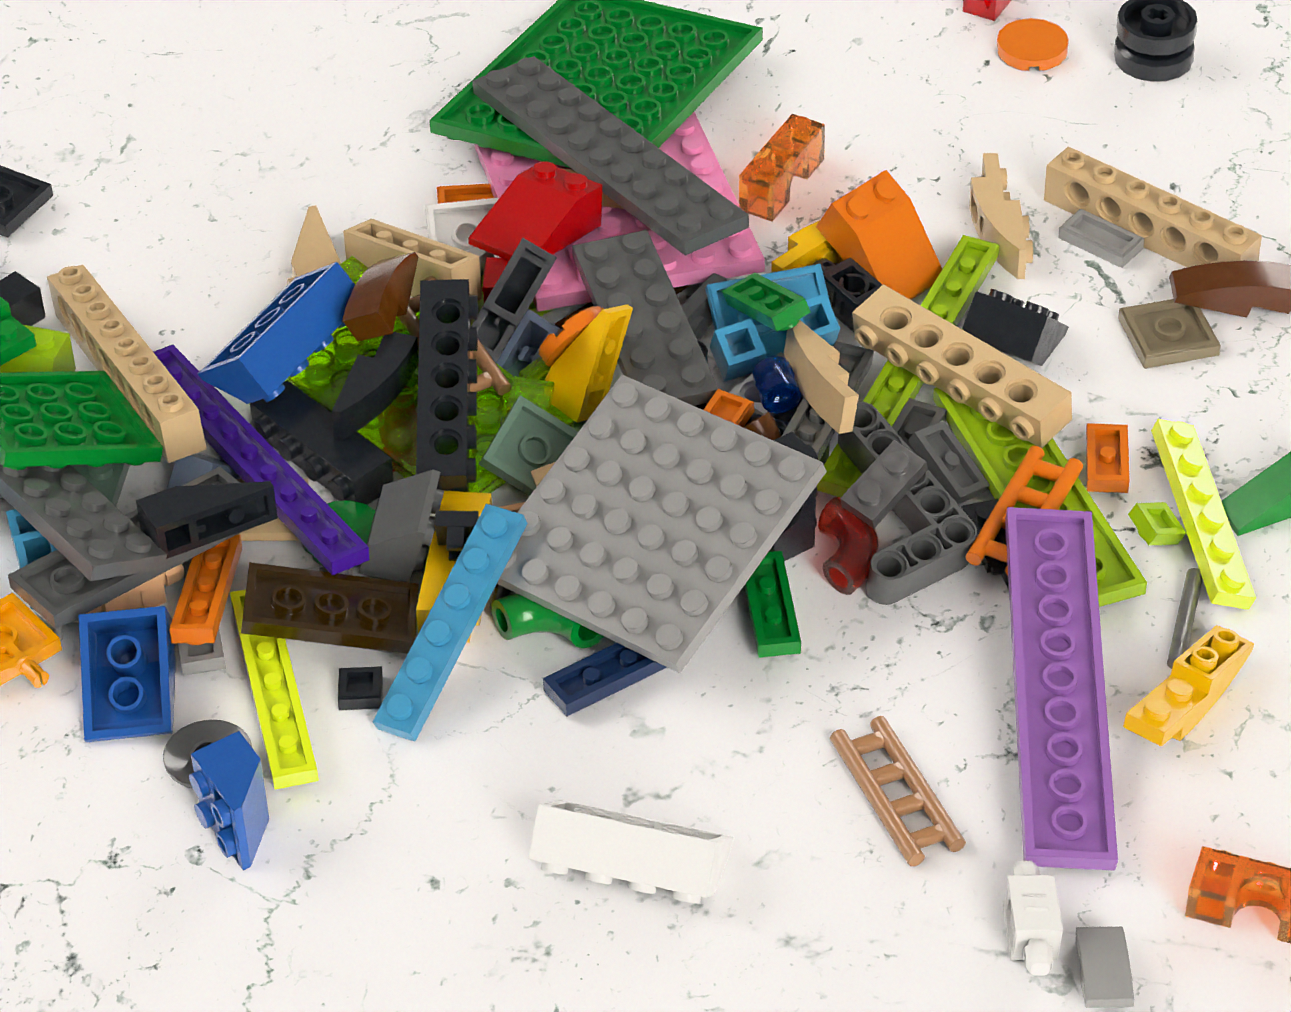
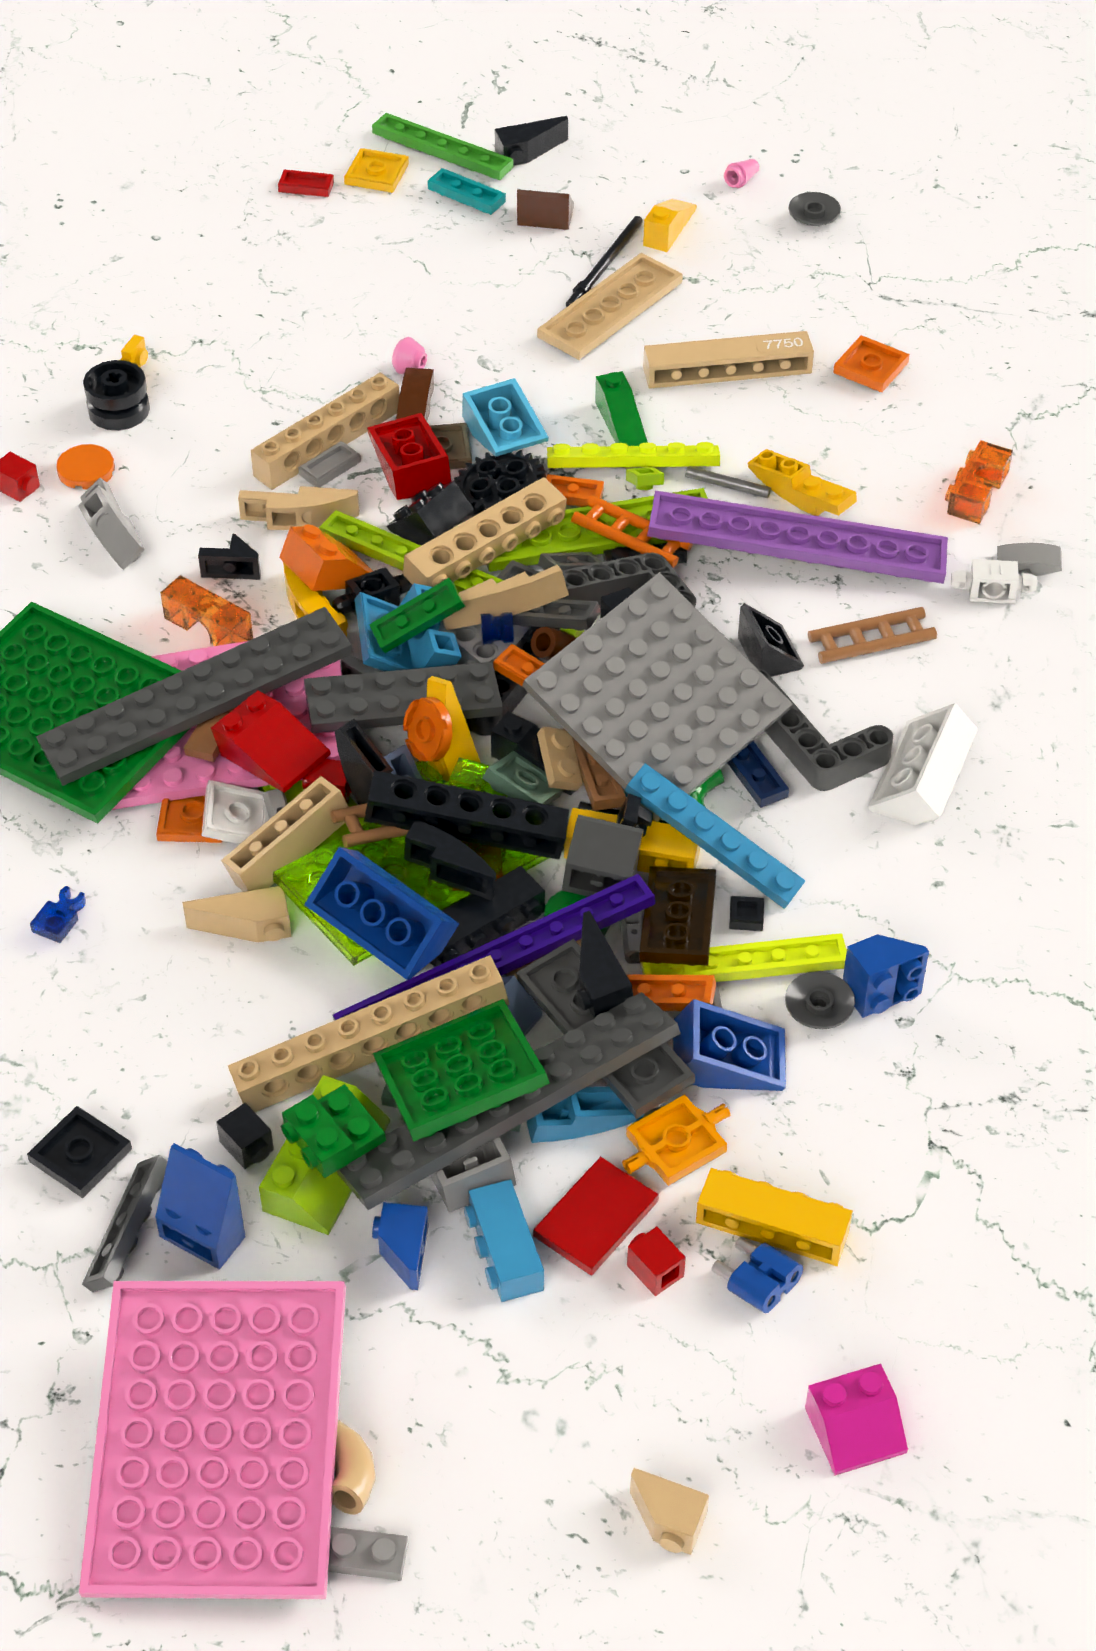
camera: 85 degrees left, 5 degrees up
(307, 134) = (58, 918): none -> clear blue plate
(380, 297) = (362, 832): reddish brown slope -> none
(631, 732) = (823, 763): none -> dark grey beam
(843, 668) = (766, 643): none -> black slope
(884, 484) = (609, 575): flat silver plate -> none
(903, 170) = (231, 563): none -> black slope
(919, 66) = (110, 524): none -> light grey slope
(1114, 290) = (409, 455): none -> red slope
(1124, 386) = (497, 478): none -> black gear
(1216, 364) = (502, 418): none -> medium azure slope
(1241, 42) = (135, 351): none -> yellow plate

